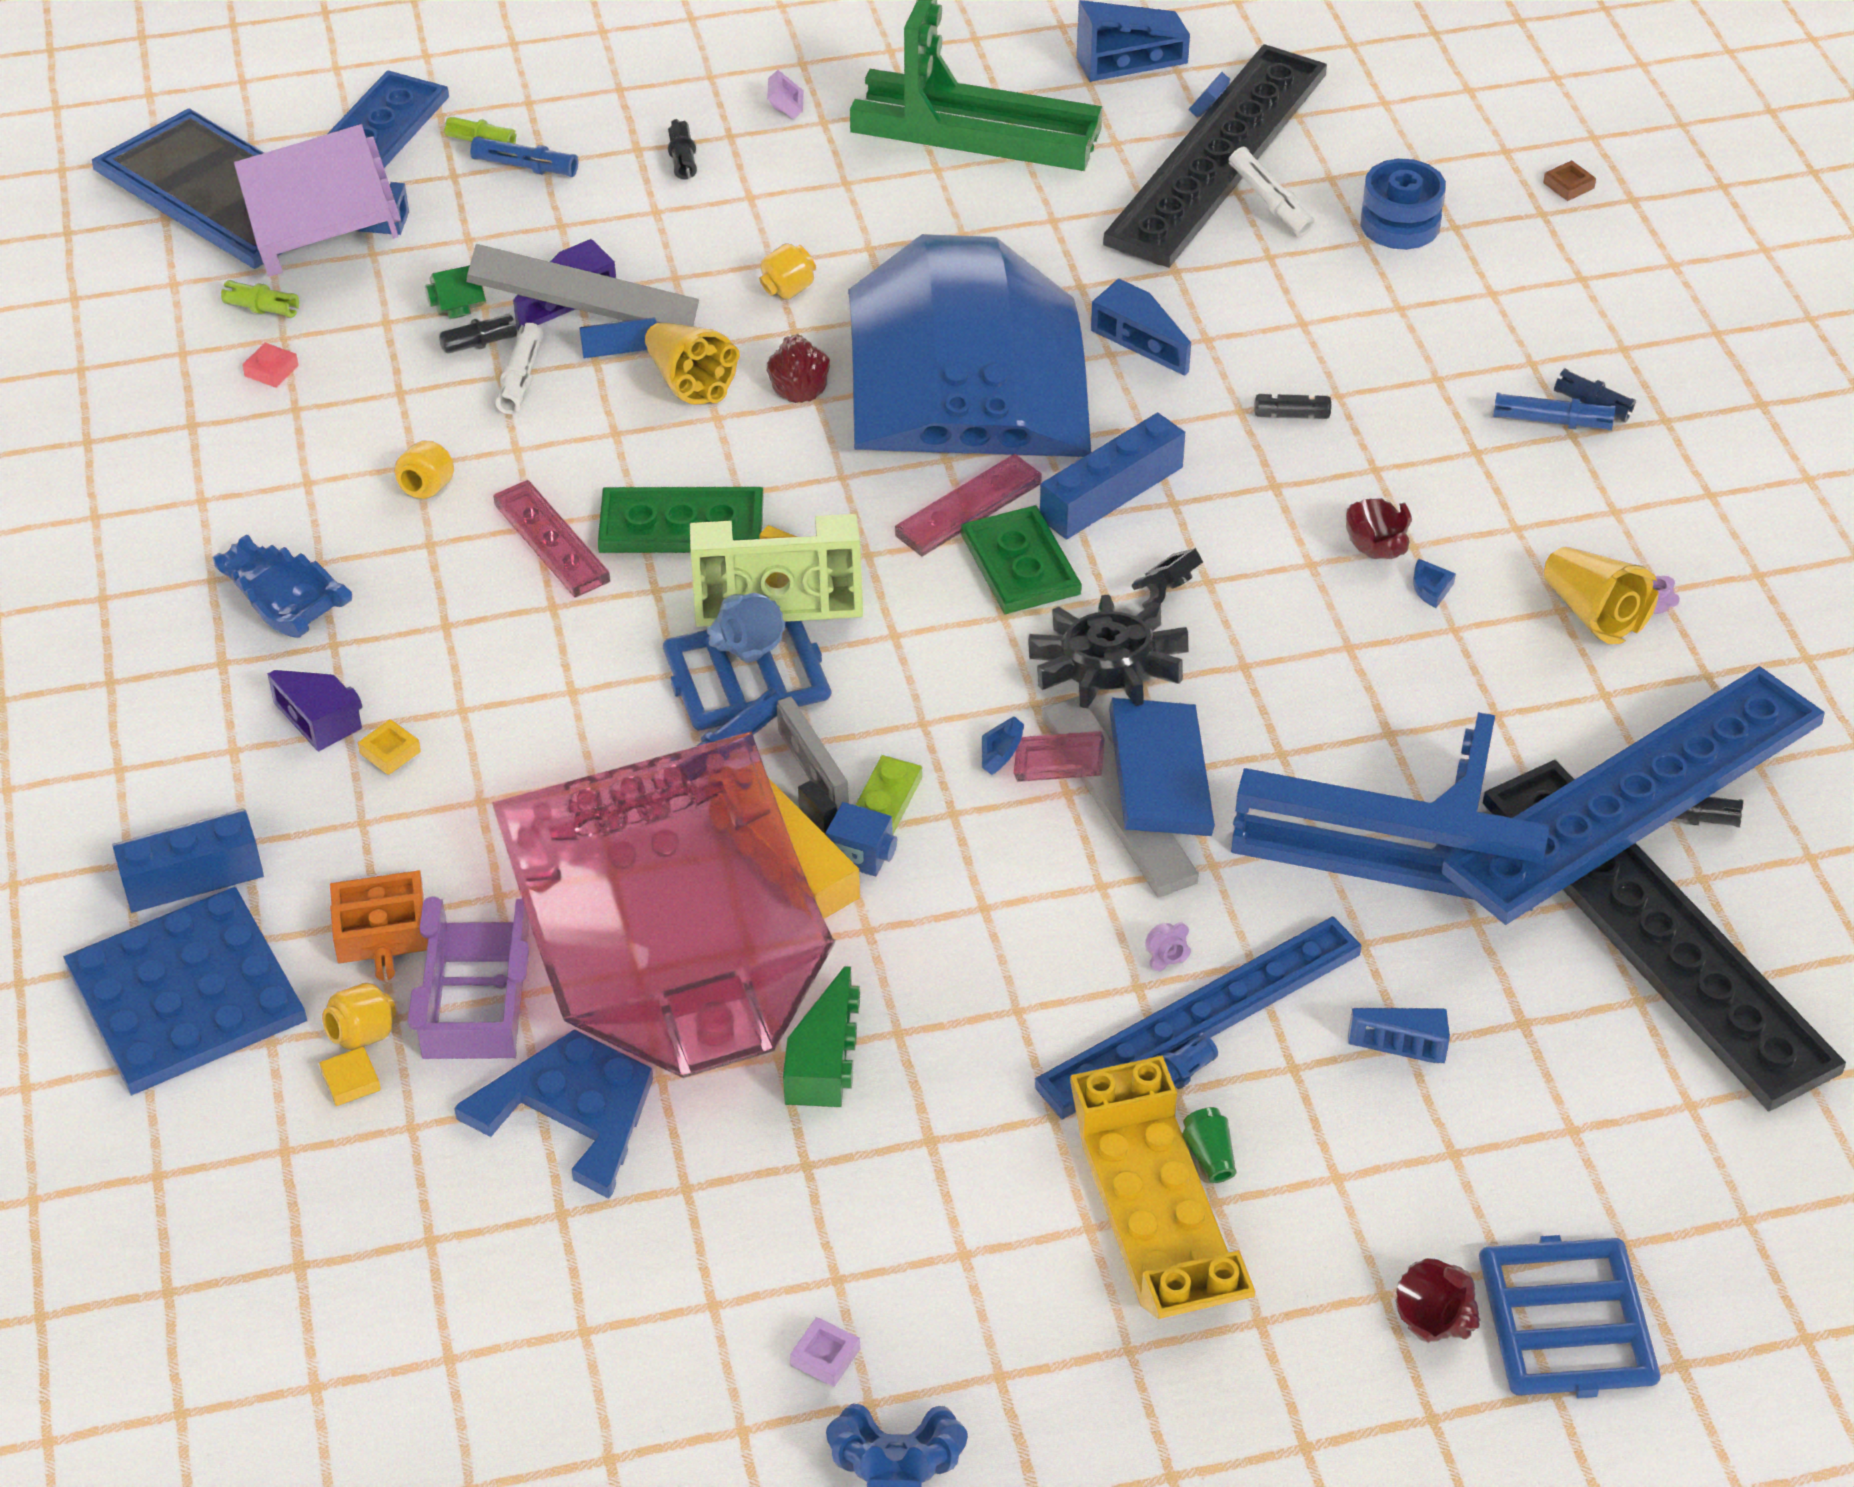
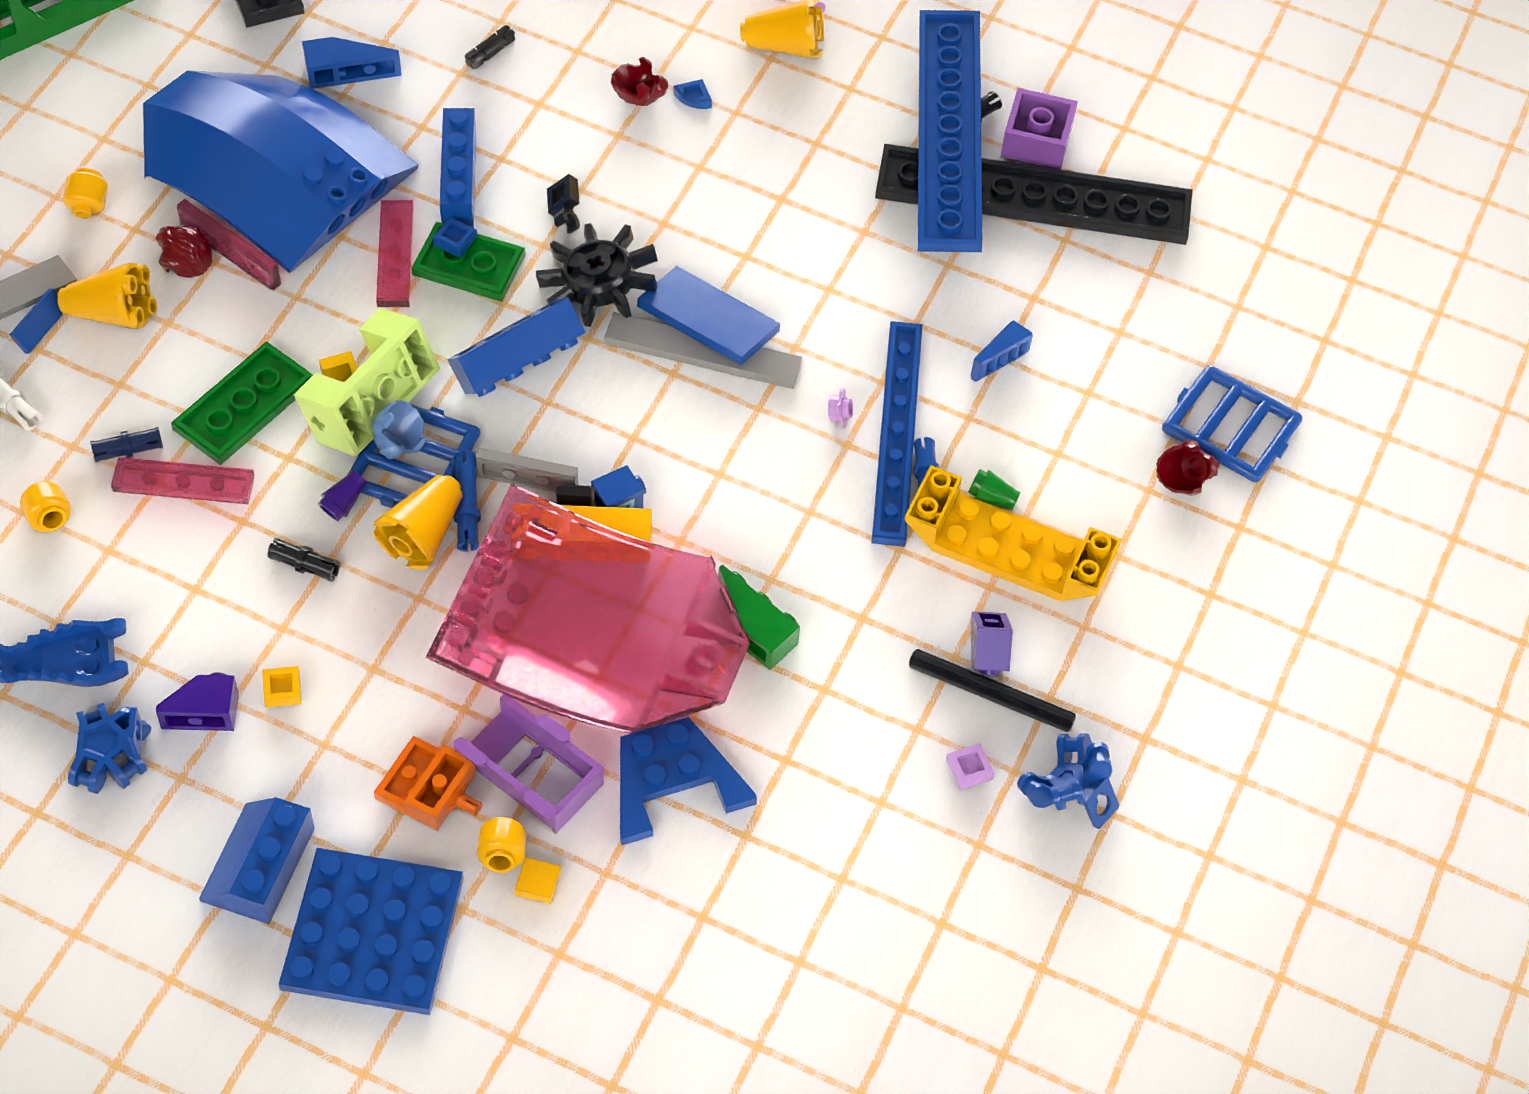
camera: 55 degrees left, 10 degrees up
(211, 665) = (102, 740): none -> blue piece
(547, 670) = (303, 559): none -> black pin
(549, 476) = (126, 444): none -> dark blue pin
(641, 646) = (342, 496): none -> dark purple cone
(666, 711) = (419, 522): none -> yellow cone
(838, 392) = (230, 245): none -> clear pink tile
(891, 788) = (587, 454): lime plate -> none
(947, 649) = (517, 346): none -> blue brick
(949, 1314) = (992, 690): none -> black axle
(1000, 744) = (612, 376): blue tile -> none
(1004, 1264) = (990, 642): none -> slope
(1028, 526) = (455, 237): none -> blue tile
(1059, 756) = (653, 355): clear pink tile -> none
(1447, 821) = (874, 252): blue piece -> none
(1742, 870) = (1038, 129): none -> medium lavender brick

